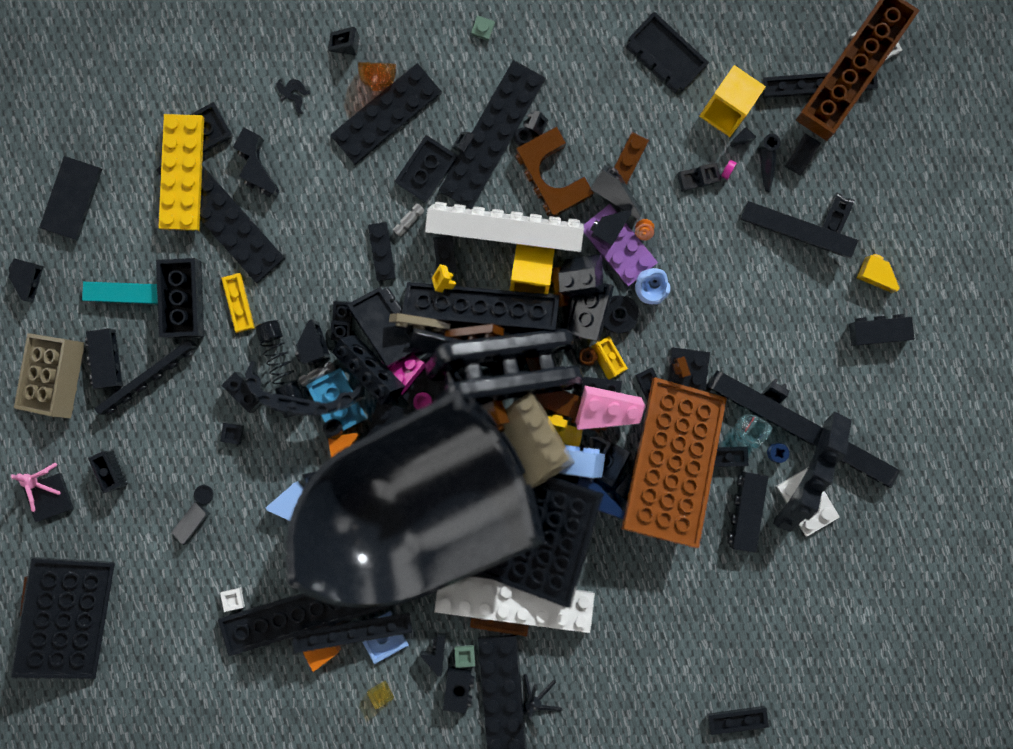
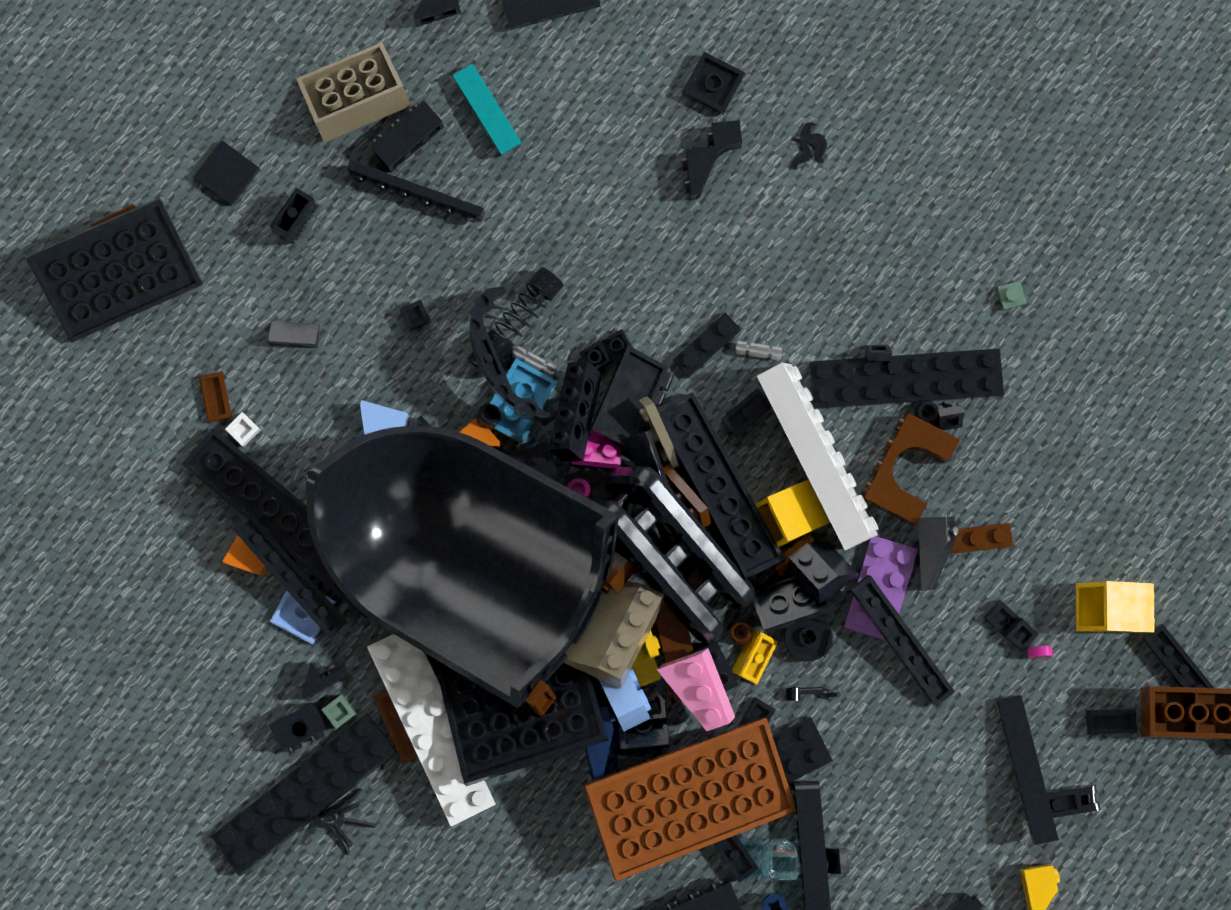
camera: 55 degrees right, 5 degrees down
(30, 481) = (232, 145): bright pink plant -> none
(180, 298) = (520, 172): black brick -> none
(181, 172) = (650, 88): yellow plate -> none
(198, 603) = (215, 397): none -> reddish brown tile
(203, 494) = (332, 328): black piece -> none
(236, 230) = (634, 155): black plate -> none
(238, 303) = (554, 233): yellow tile -> none
(239, 390) = (467, 292): black brick -> none
(312, 345) = (561, 337): black slope -> none
(344, 41) = (898, 163): black slope -> none
(376, 74) = (887, 219): clear orange cylinder -> none
(380, 694) = (241, 649): clear yellow slope -> none
(386, 113) = (853, 254): black plate -> none
(426, 169) = (823, 333): black plate -> none
(442, 279) = (720, 426): yellow tile -> none
(547, 521) = (540, 698): none -> reddish brown tile
(609, 227) = (892, 565): black slope -> none
(644, 229) = (915, 604): orange wheel -> none
(649, 292) = (858, 644): light blue piece -> none
(649, 347) = (795, 693): none -> black piece
(662, 254) = (902, 640): none -> black plate
(667, 51) = (1119, 505): black hinge -> none
(681, 367) = (795, 738): reddish brown plate -> none
(743, 137) = (1083, 644): black slope -> none
(768, 159) = (1079, 688): black piece -> none

